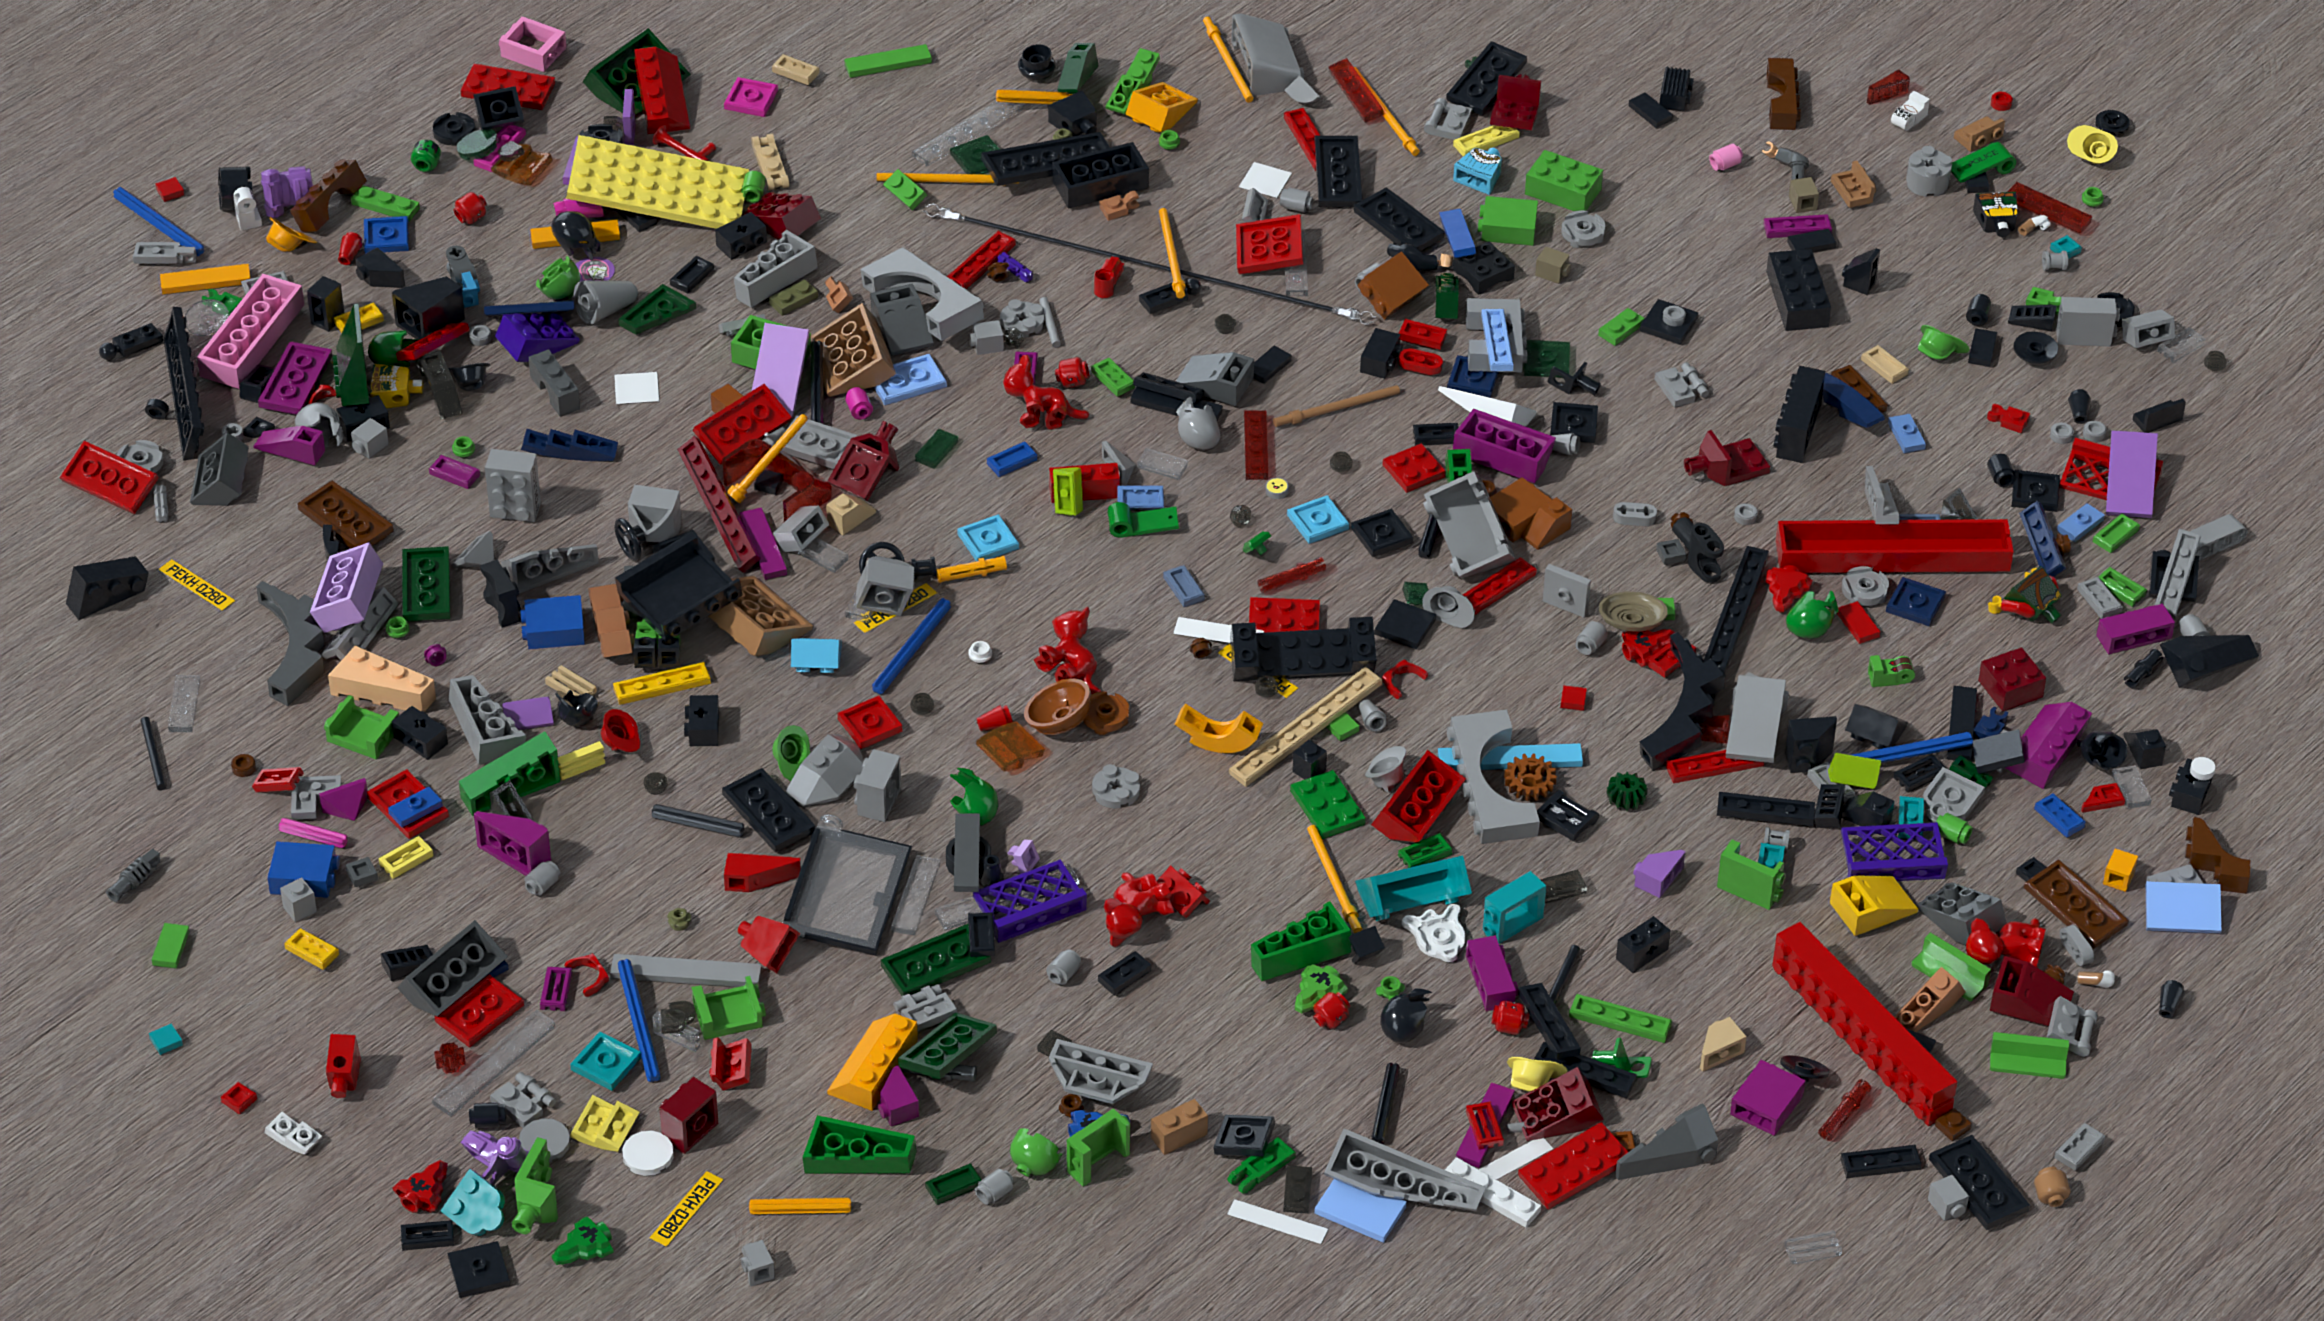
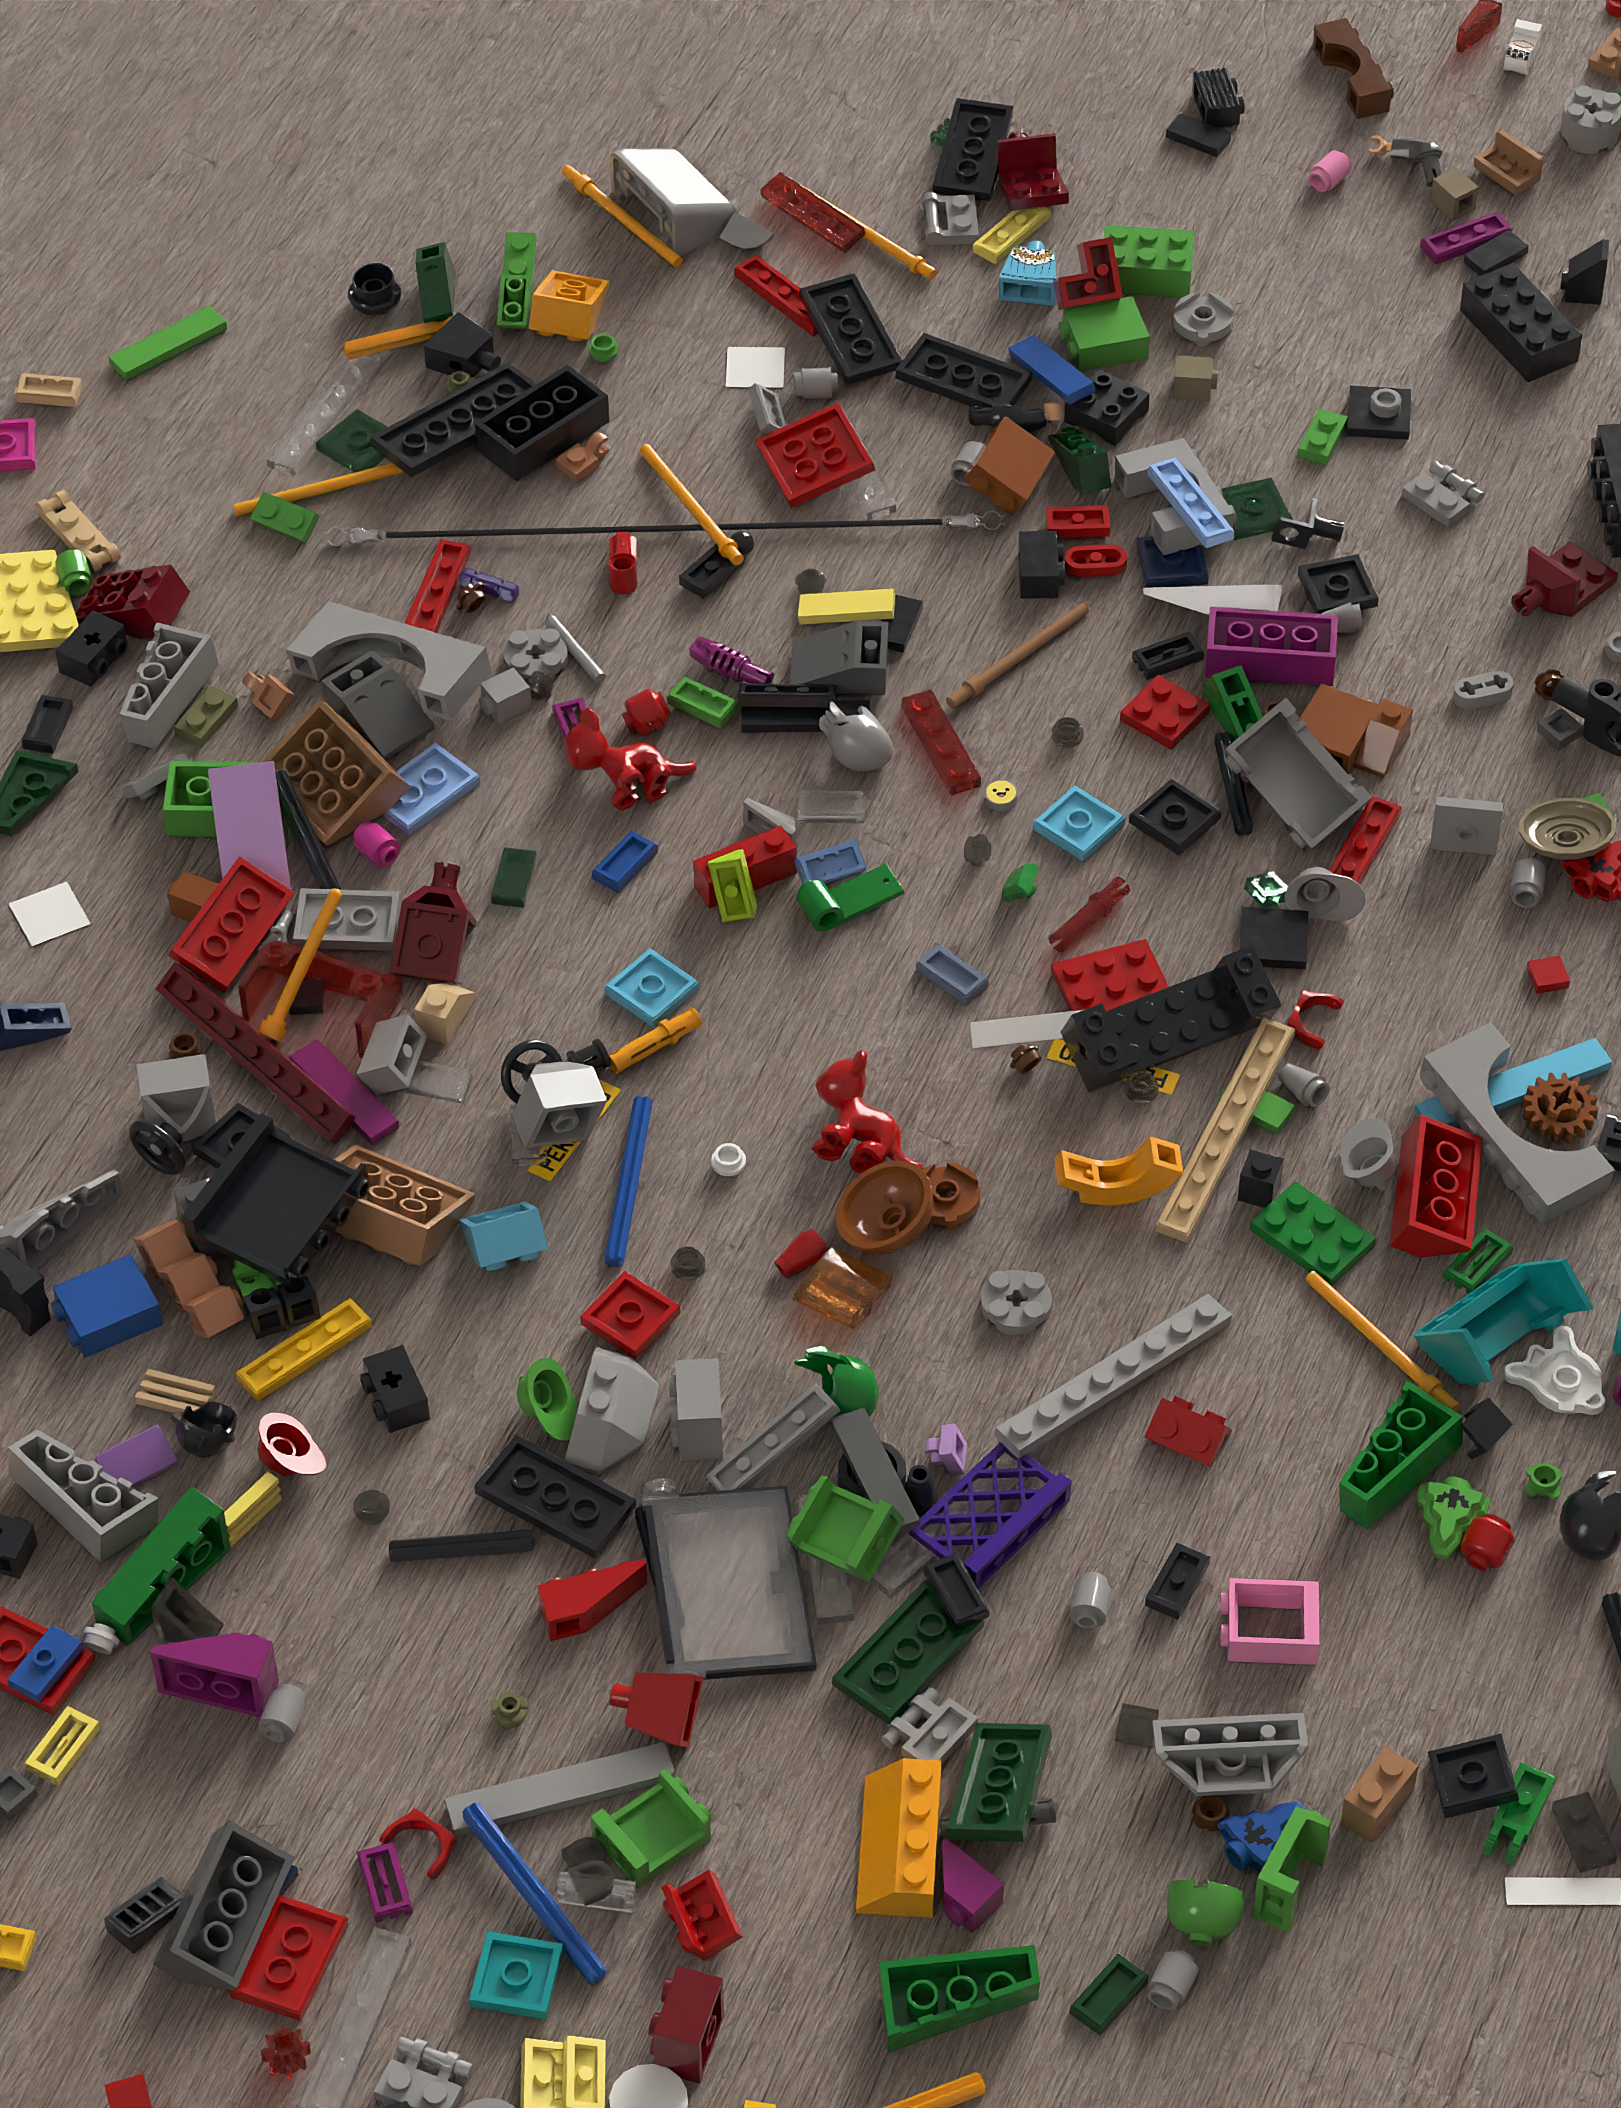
camera: 20 degrees left, 5 degrees up
(456, 805) = (100, 1638): none -> white plate
(679, 485) = (184, 1045): none -> reddish brown plate
(917, 817) = (774, 1441): none -> light grey tile
(929, 877) = (844, 1529): none -> bright green panel
(1131, 902) = (1140, 1466): red animal -> none
(1143, 357) = (728, 662): none -> magenta hinge
(1150, 845) = (1112, 1376): none -> light grey plate
(1174, 996) = (1271, 1594): none -> bright pink window
(1239, 343) = (846, 606): none -> light yellow tile
(1516, 183) = (1098, 278): none -> red brick

